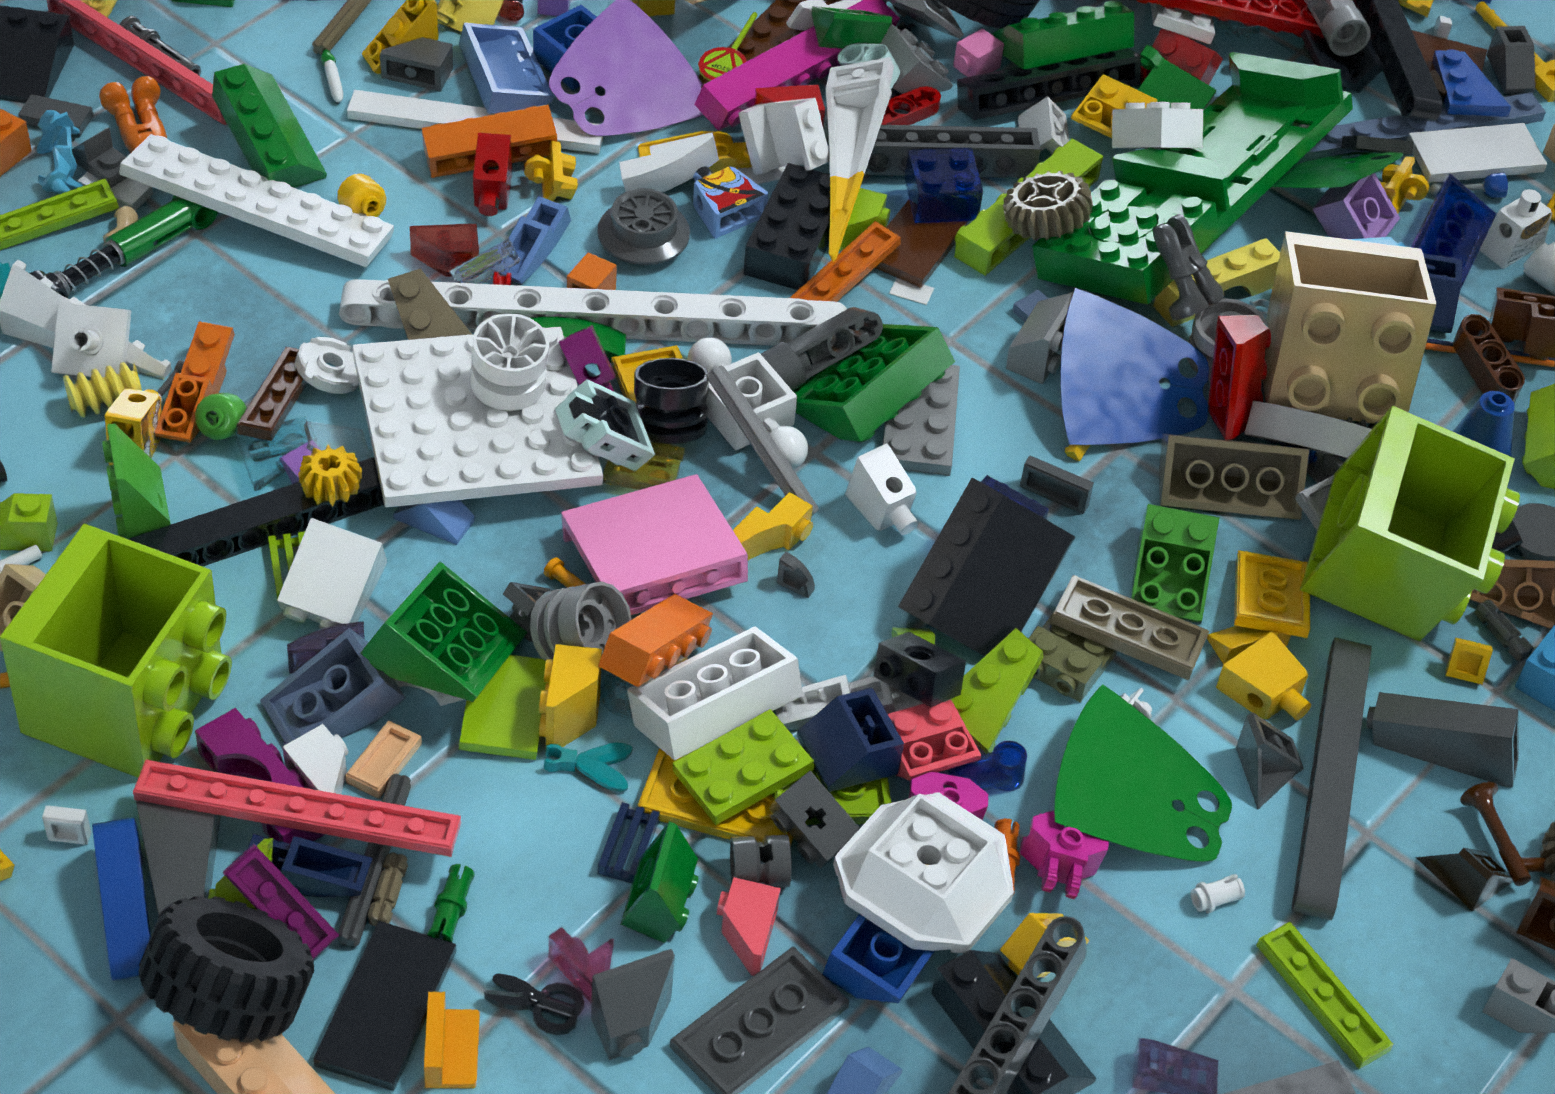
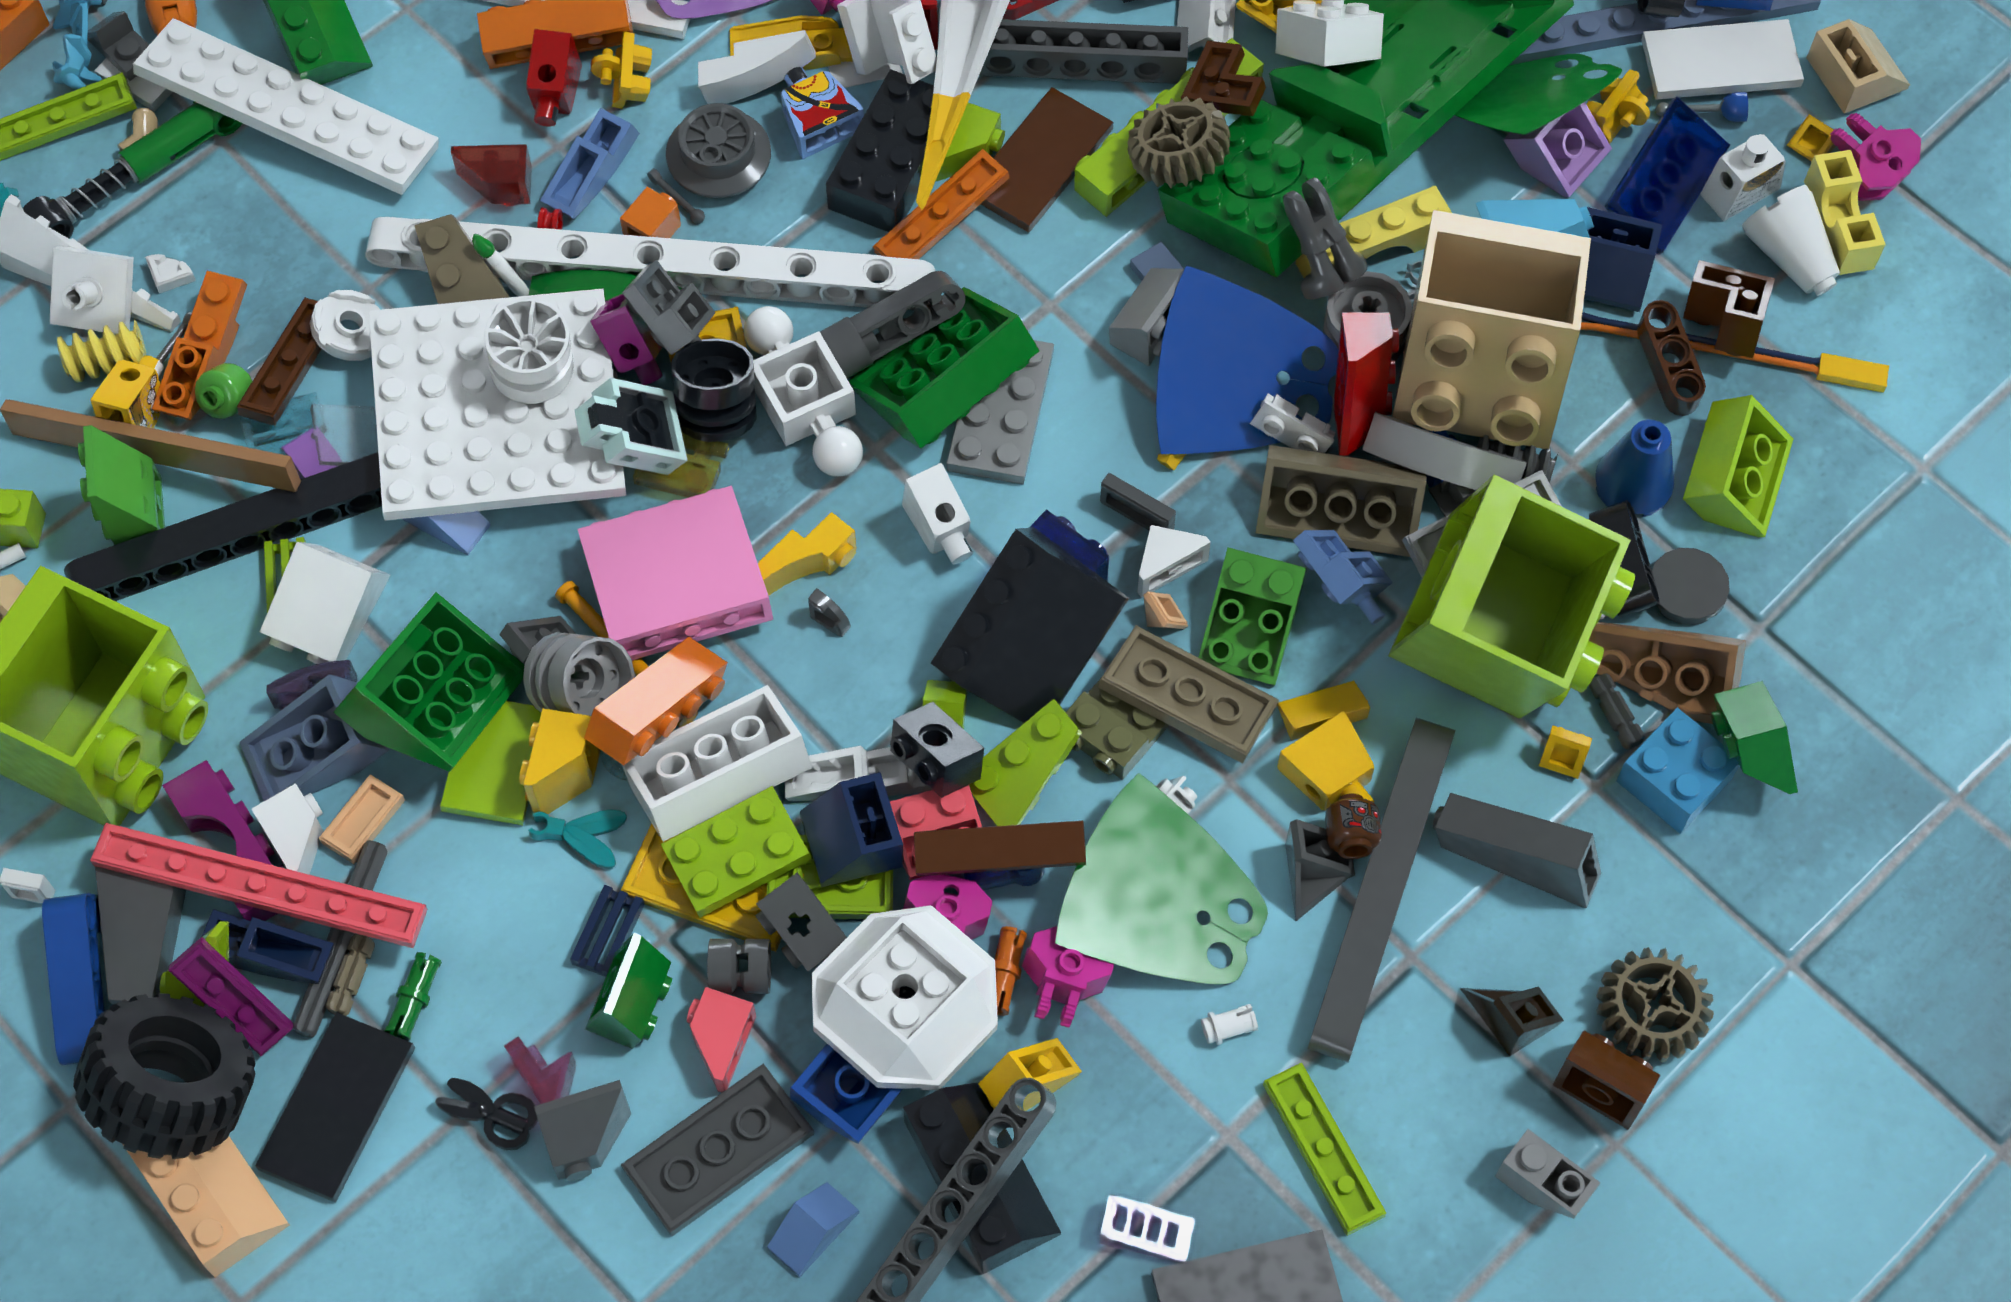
camera: 10 degrees right, 15 degrees up
(158, 332) = (169, 272): none -> white tile
(174, 458) = (162, 446): none -> medium nougat tile
(330, 475) = (328, 478): yellow gear -> none
(362, 195) = (405, 98): yellow head -> none
(450, 1045) = (395, 1156): light orange panel -> none
(454, 297) = (487, 250): none -> white piece
(485, 264) = (529, 201): clear tile -> none
(629, 280) = (696, 215): none -> dark grey hinge
(631, 343) = (669, 312): none -> dark grey plate
(758, 435) = (805, 446): light grey axle -> none
(909, 291) = (1016, 237): white sticker -> none
(943, 185) = (1068, 101): clear blue brick -> none
(992, 744) = (999, 848): none -> reddish brown tile
(1069, 156) = (1217, 82): none -> reddish brown plate
(1092, 568) = (1162, 611): none -> light nougat slope
(1093, 521) = (1169, 556): none -> white slope
(1176, 419) = (1278, 420): none -> white hinge
(1253, 524) = (1345, 574): none -> medium blue plate
(1270, 594) = (1354, 660): yellow tile -> none
(1300, 721) = (1353, 826): none -> reddish brown head
(1375, 144) = (1600, 49): pearl dark grey tile -> none
(1518, 867) = (1565, 1009): reddish brown piece -> none

